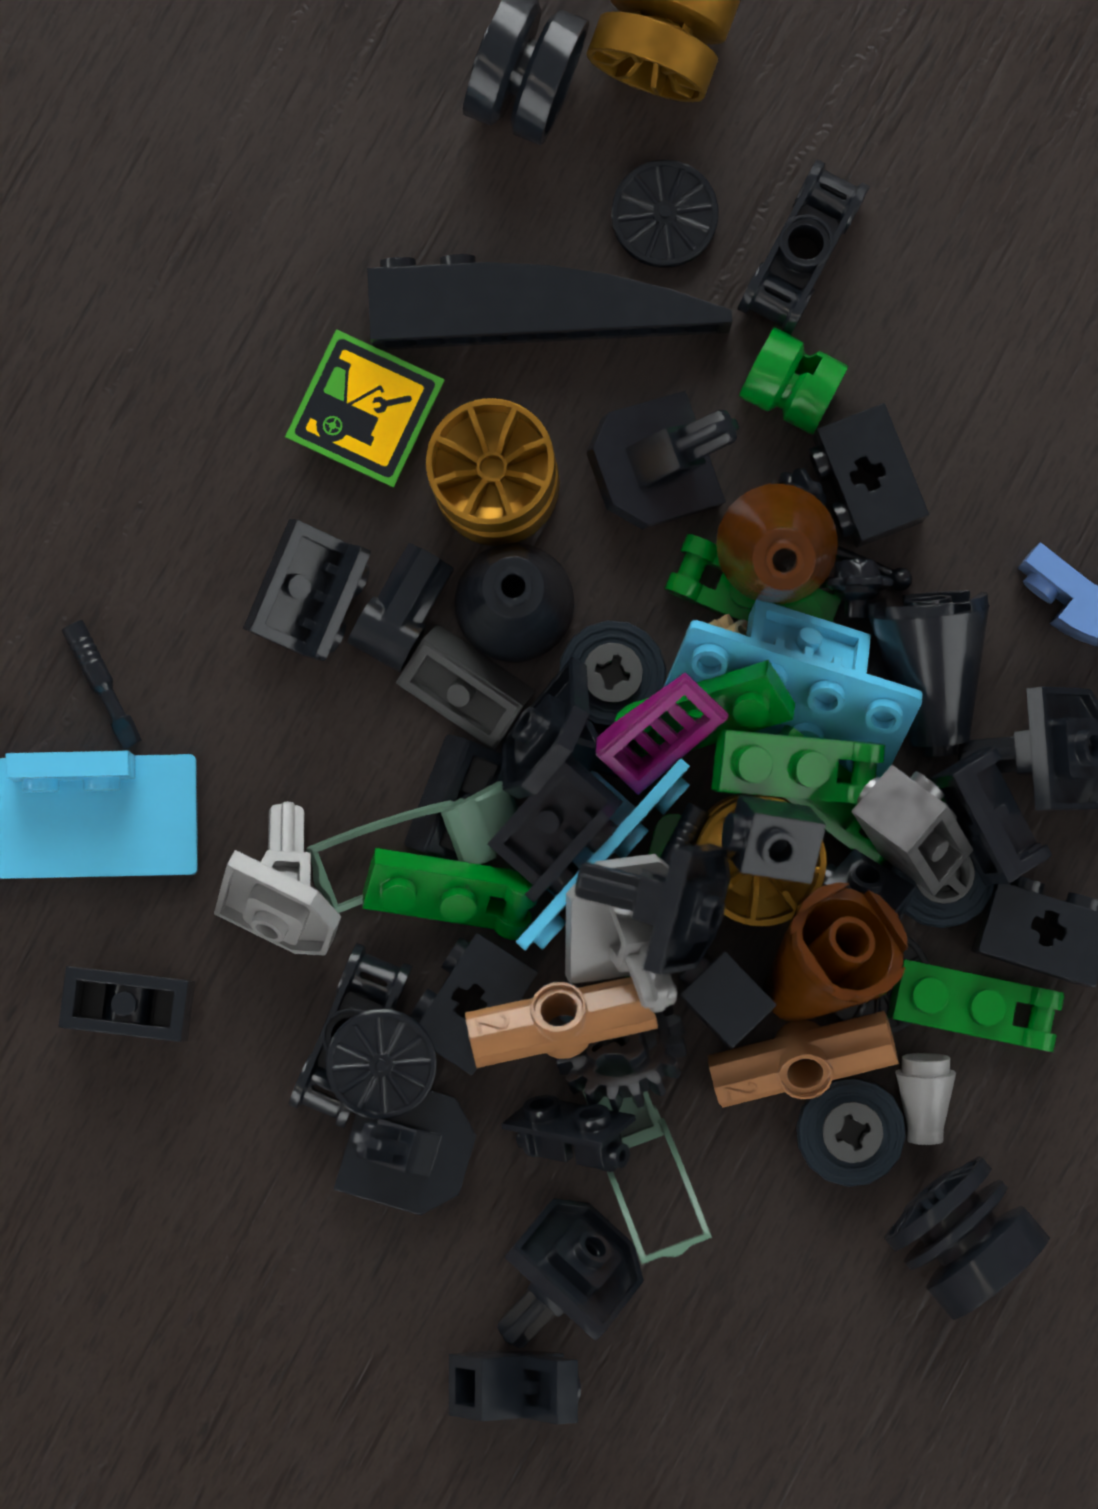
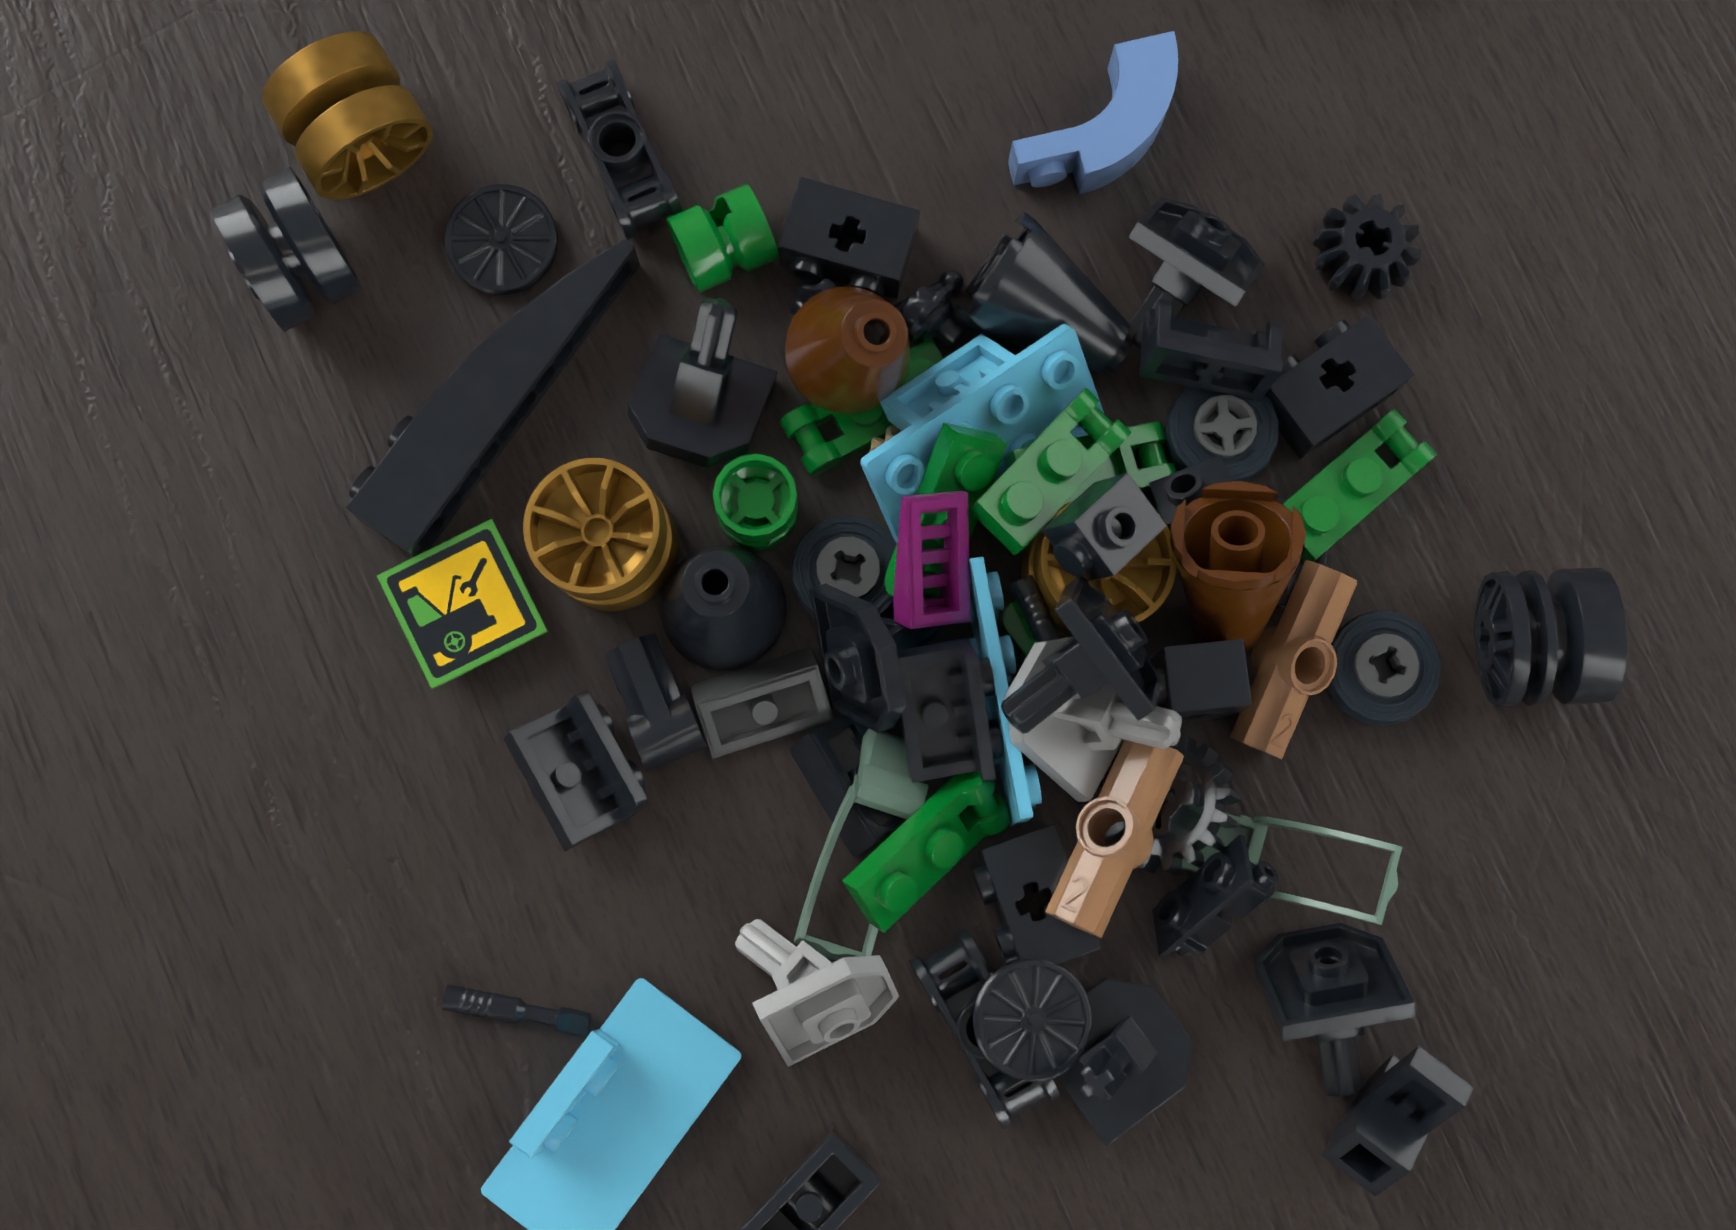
camera: 55 degrees left, 5 degrees down
(608, 566) = (756, 502): none -> green wheel
(912, 827) = (1174, 414): flat silver brick -> none
(925, 1094) = (1395, 582): light grey cone -> none

